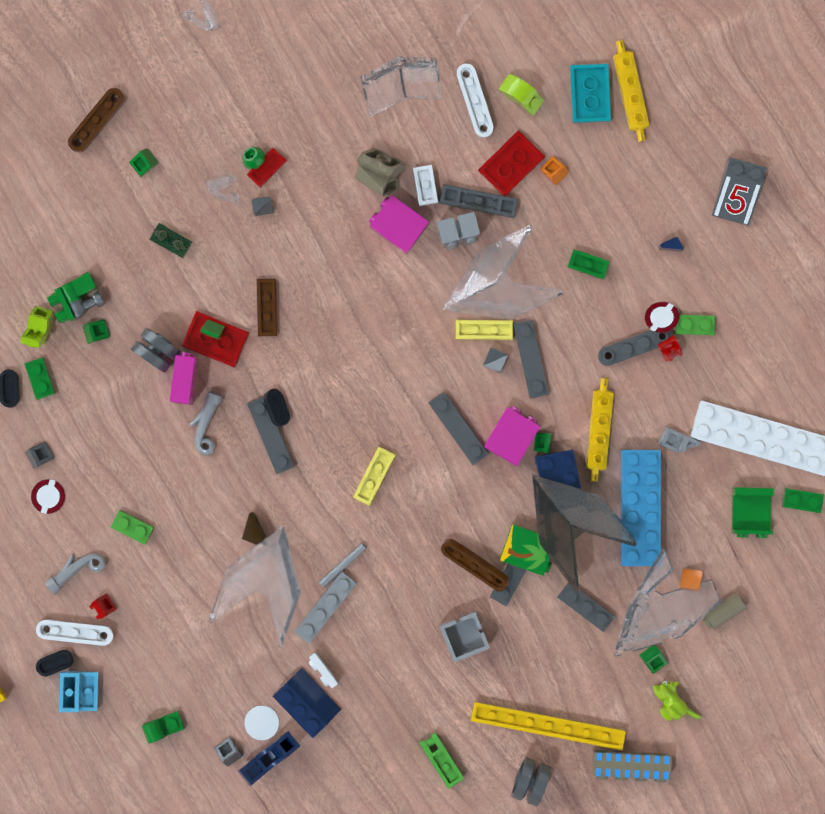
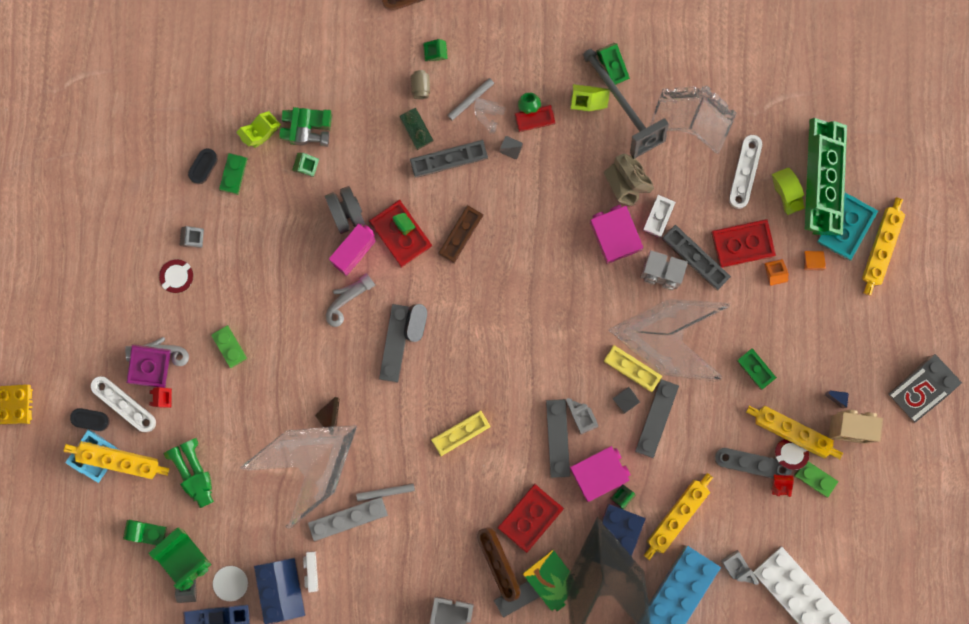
camera: 30 degrees right, 5 degrees down
(75, 587) = (148, 366): none -> magenta tile
(100, 682) = (116, 460): none -> yellow plate
(150, 200) = (420, 84): none -> dark tan brick
(182, 659) = (197, 485): none -> green piece
(201, 185) = (470, 99): none -> light grey bar
(207, 729) = (180, 559): none -> green panel
(215, 249) = (448, 158): none -> dark grey plate
(302, 121) = (589, 98): none -> lime slope
(303, 77) = (612, 60): none -> green plate
(373, 125) = (647, 137): none -> dark grey tile
(467, 396) = (582, 415): none -> light grey slope
(477, 509) = (530, 518): none -> red tile
(545, 63) = (825, 177): none -> green slope
(580, 140) = (814, 260): none -> orange slope
(652, 297) = (794, 432): none -> yellow plate
(700, 263) = (856, 428): none -> tan brick

